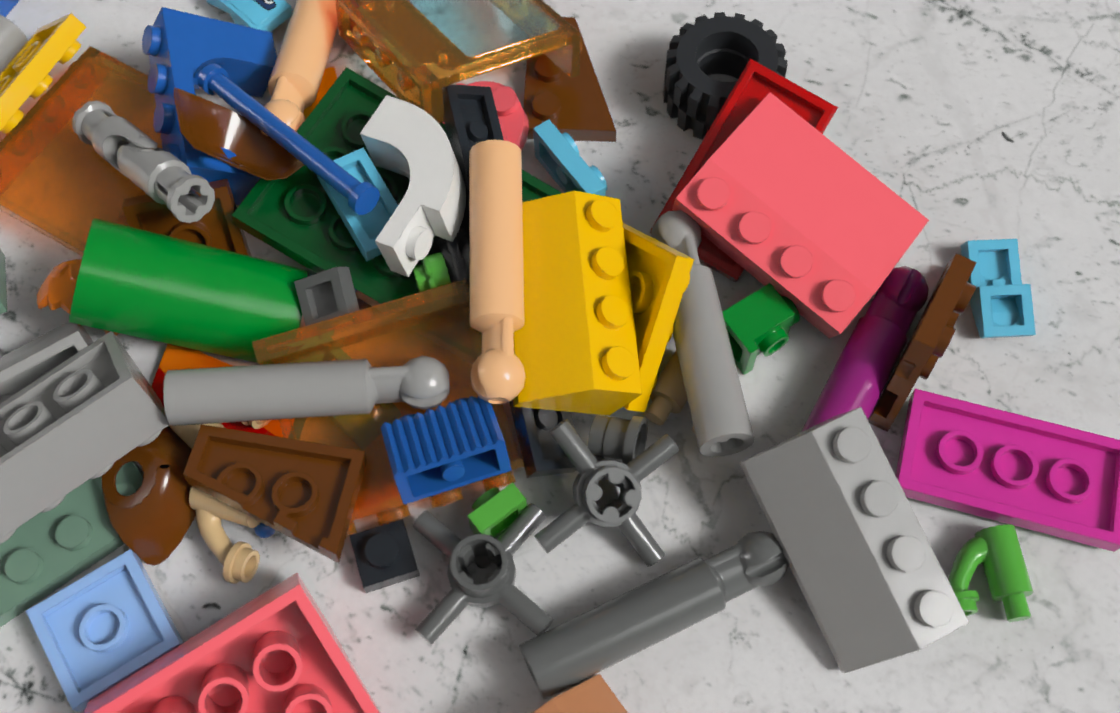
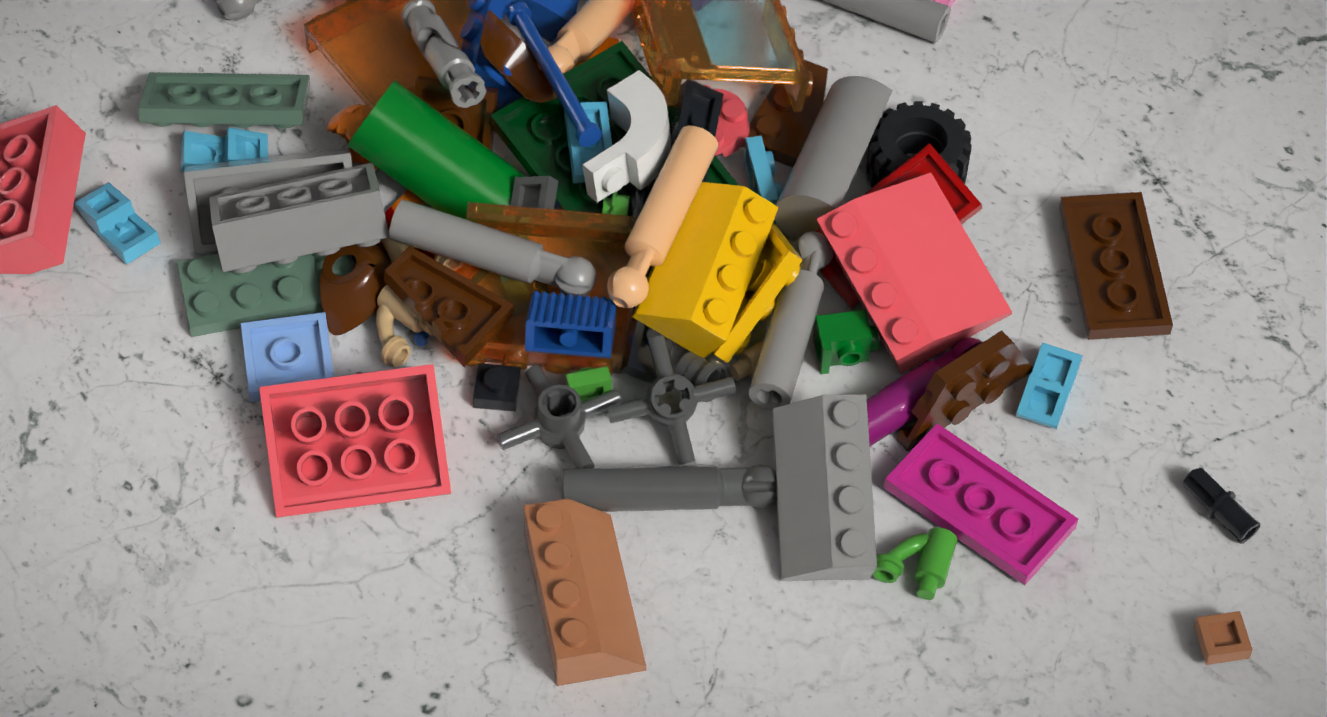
camera: 20 degrees right, 10 degrees down
(642, 112) = (831, 153): none -> light grey brick
(986, 122) = (1115, 266): none -> reddish brown plate

